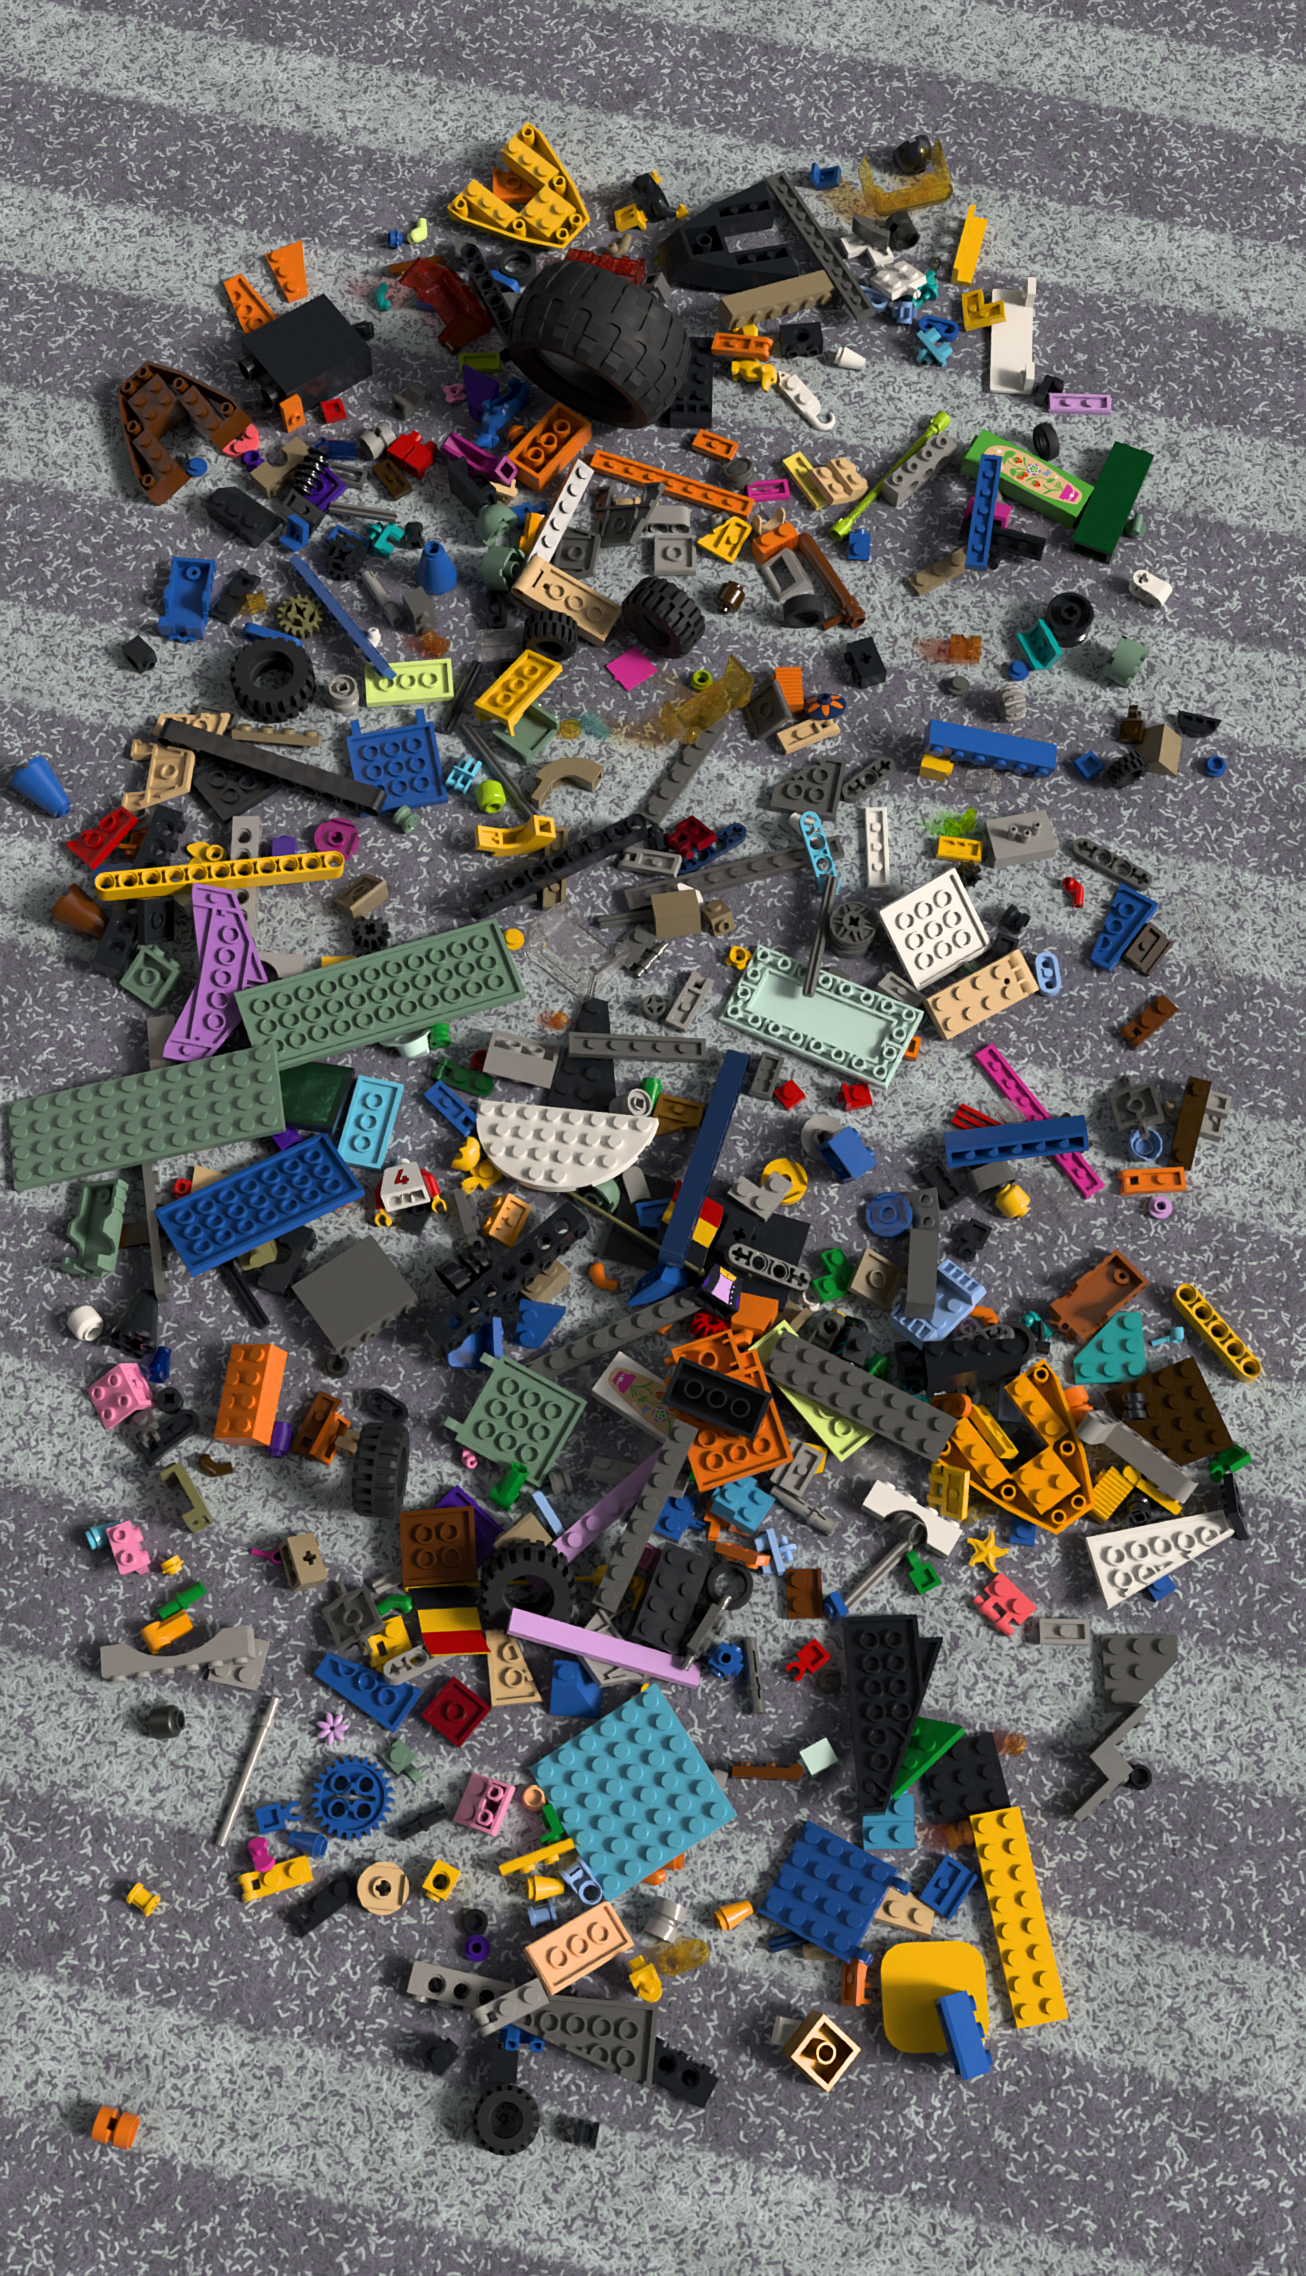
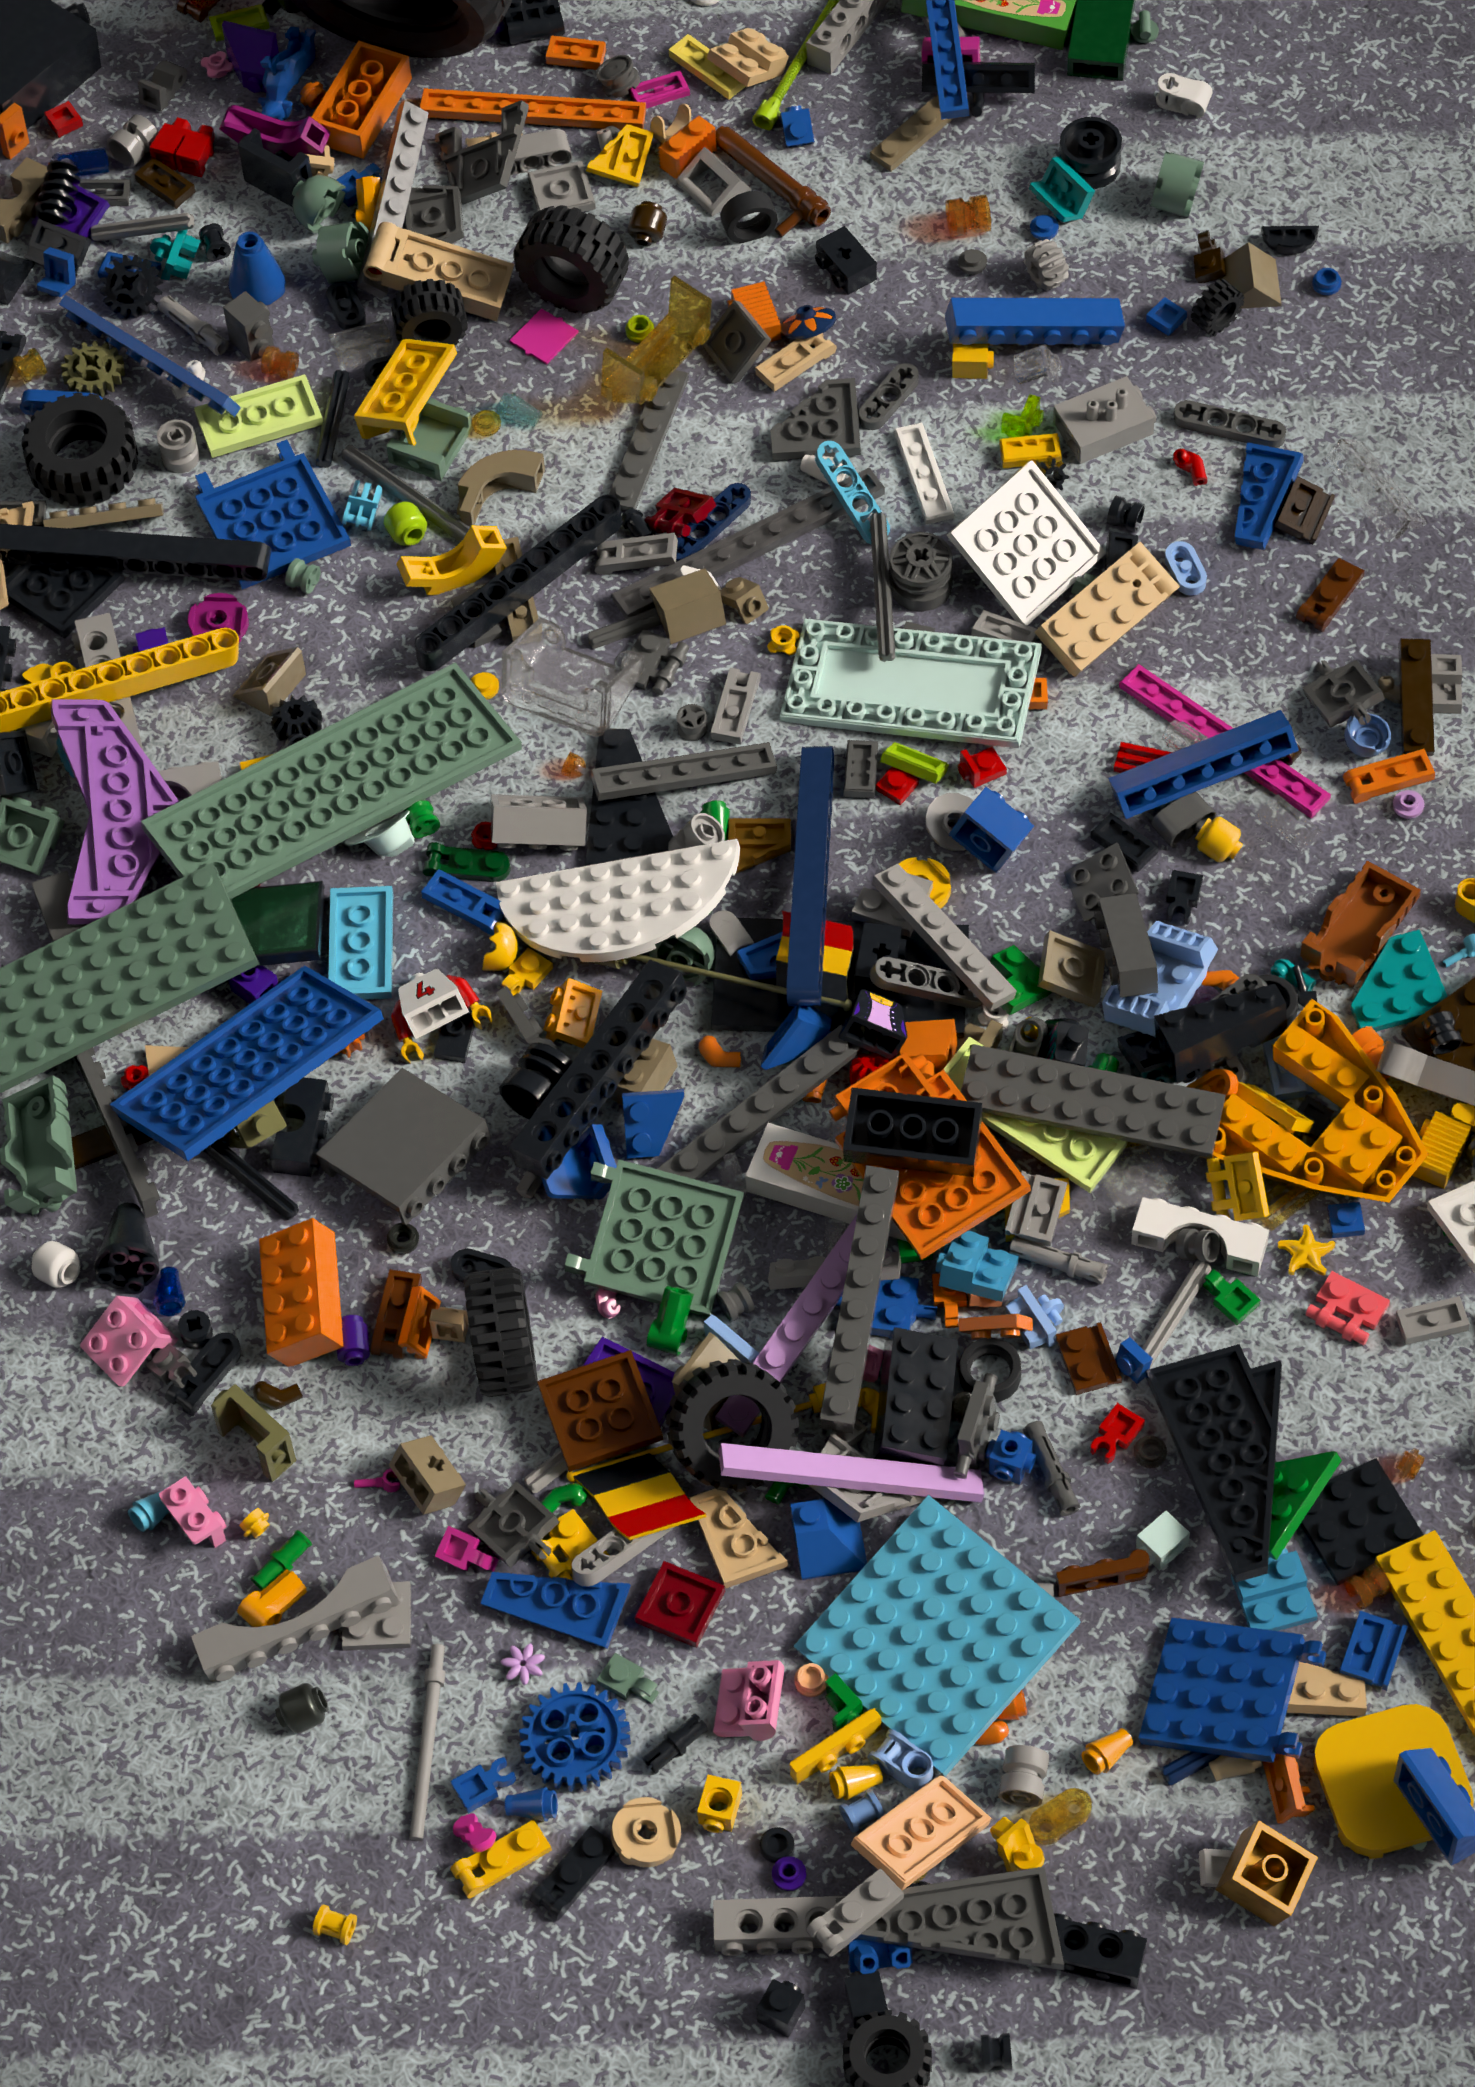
camera: 10 degrees left, 10 degrees down
(311, 1627) = (461, 1549): none -> dark pink plate
(788, 1234) = (944, 937): none -> light grey plate
(806, 1081) = (914, 762): none -> lime tile
(888, 1215) = (1066, 892): blue tile -> none

